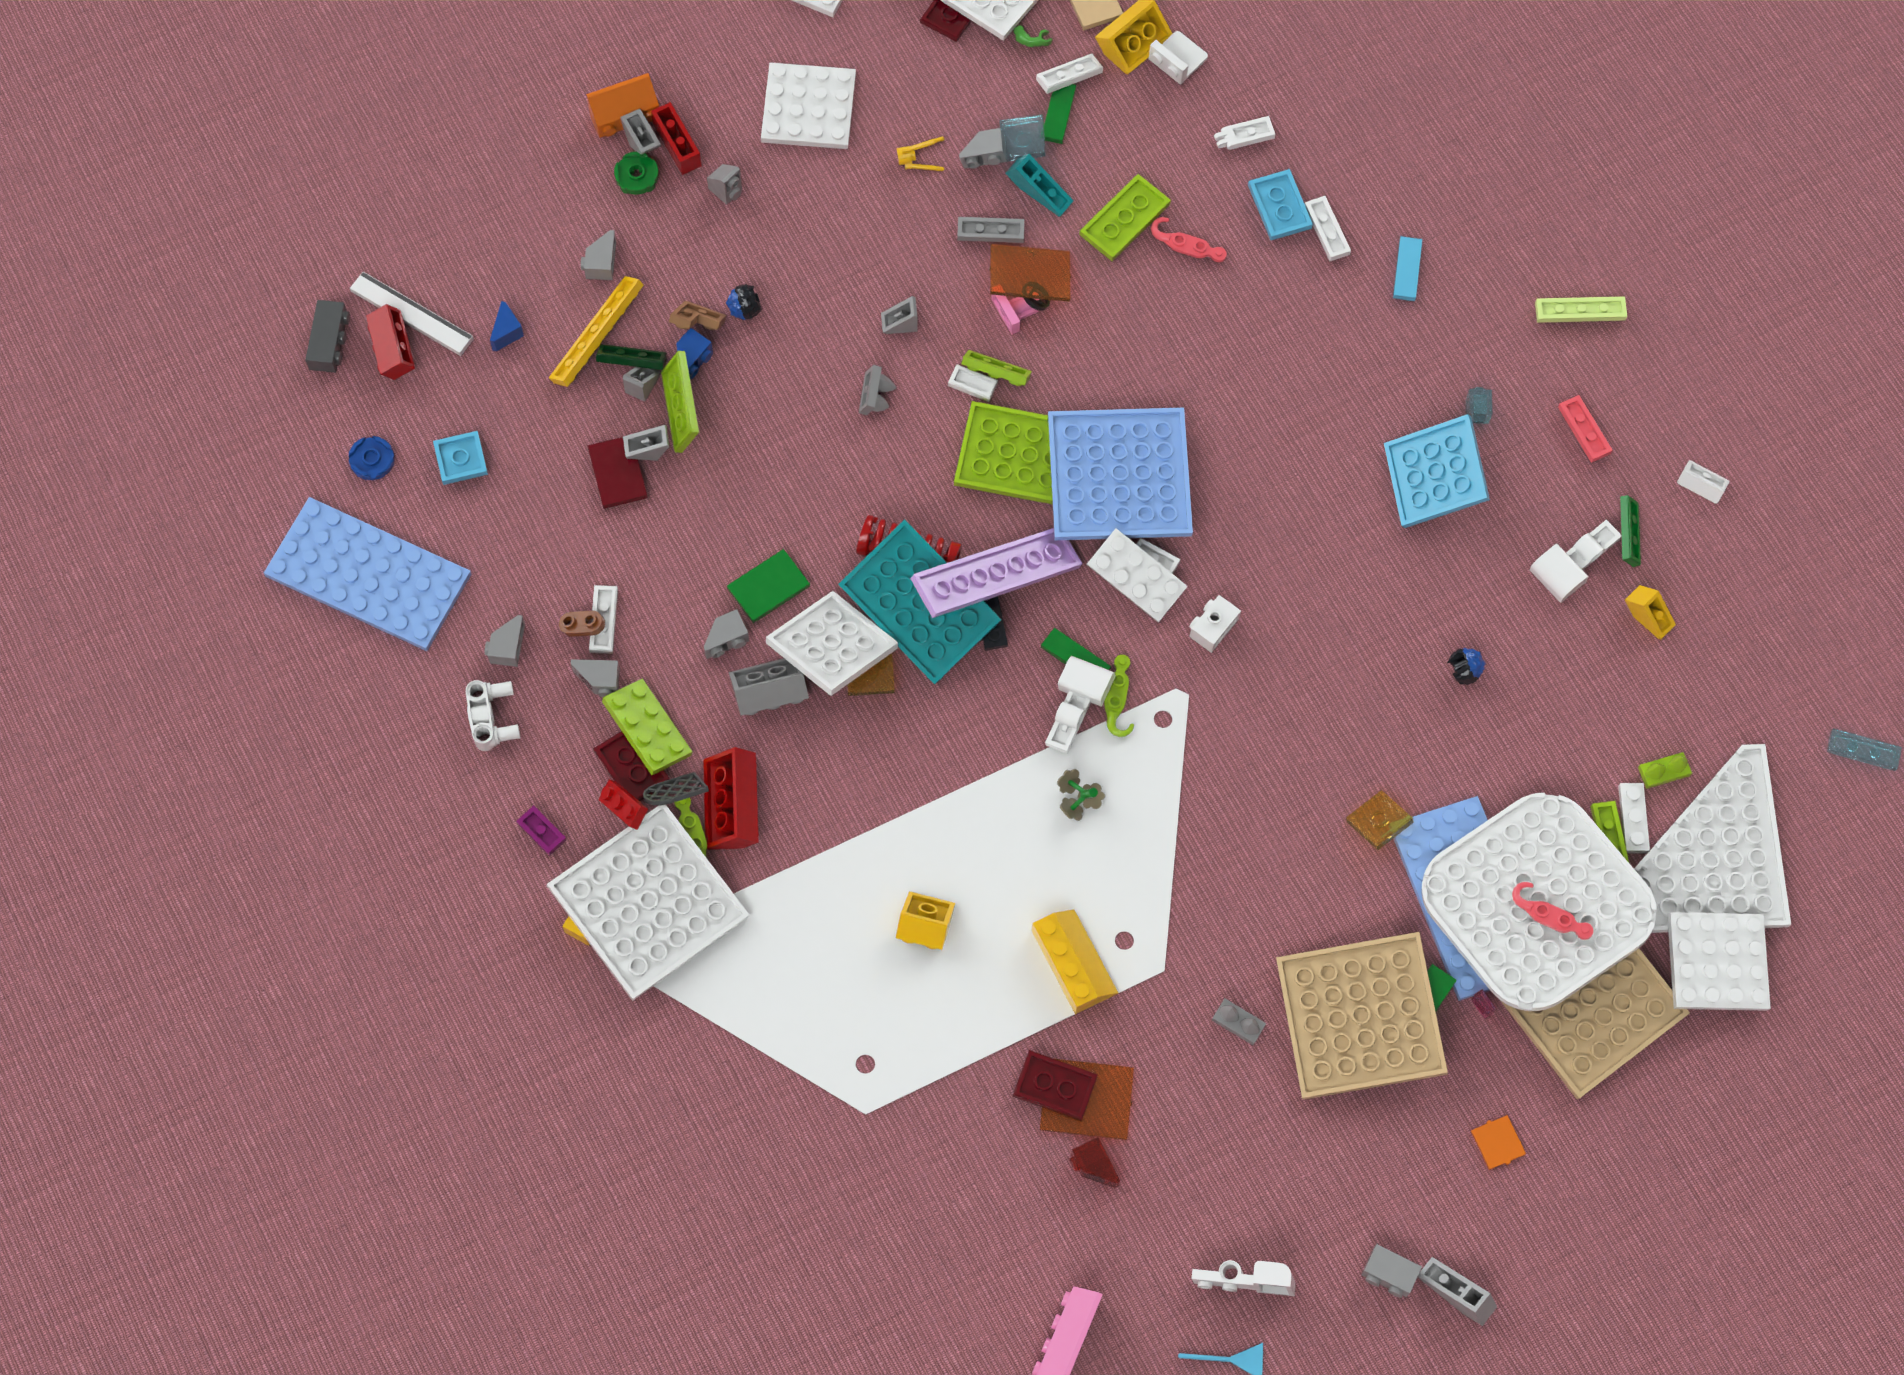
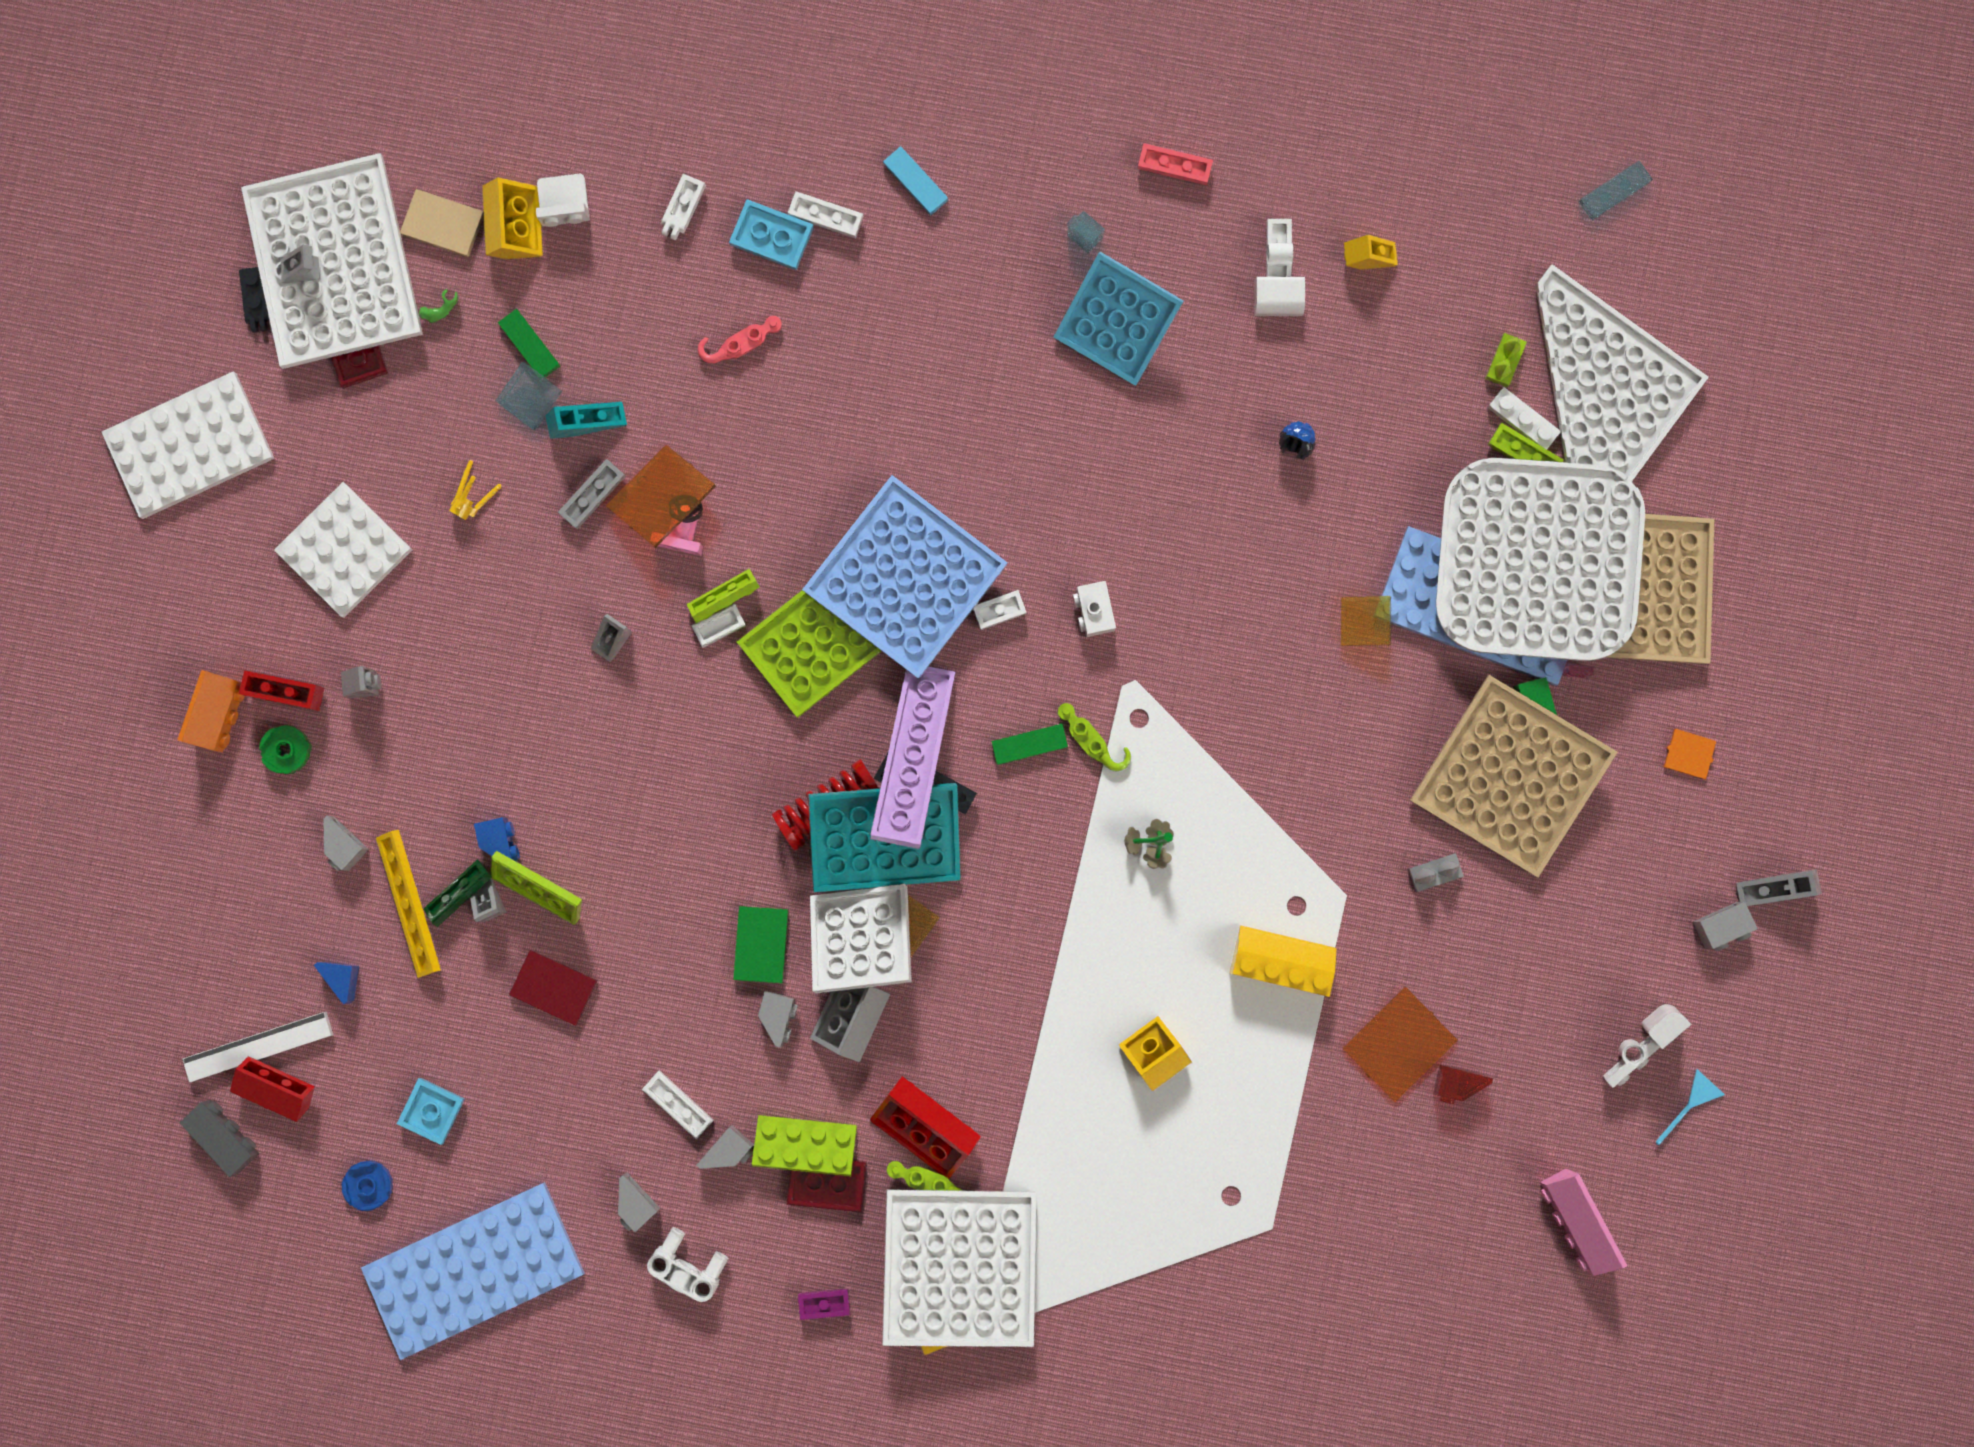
camera: 45 degrees left, 15 degrees up
(579, 624) = (668, 1129): dark orange plate -> none
(623, 804) = (861, 1224): red plate -> none
(639, 132) = (250, 718): light grey slope -> none
(647, 444) = (550, 946): light grey slope -> none
(672, 783) = (892, 1176): dark grey window -> none
(689, 314) = (460, 808): medium nougat plate -> none
(744, 302) = (487, 758): black piece -> none
(874, 383) = (651, 709): light grey tile -> none
(984, 149) = (514, 436): light grey slope -> none
(1055, 1085) = (1372, 1061): dark red tile -> none
(1069, 73) = (501, 305): white tile -> none
(1084, 685) = (1063, 760): white plate -> none
(1125, 217) = (674, 372): lime plate -> none
(1136, 575) = (1004, 638): white plate -> none
(1551, 915) = (1565, 562): coral piece -> none
(1581, 309) = (1070, 73): yellowish green plate -> none
(1630, 531) = (1291, 207): green tile -> none
(1703, 481) = (1296, 111): white slope -> none
(1718, 961) = (1694, 460): white plate -> none

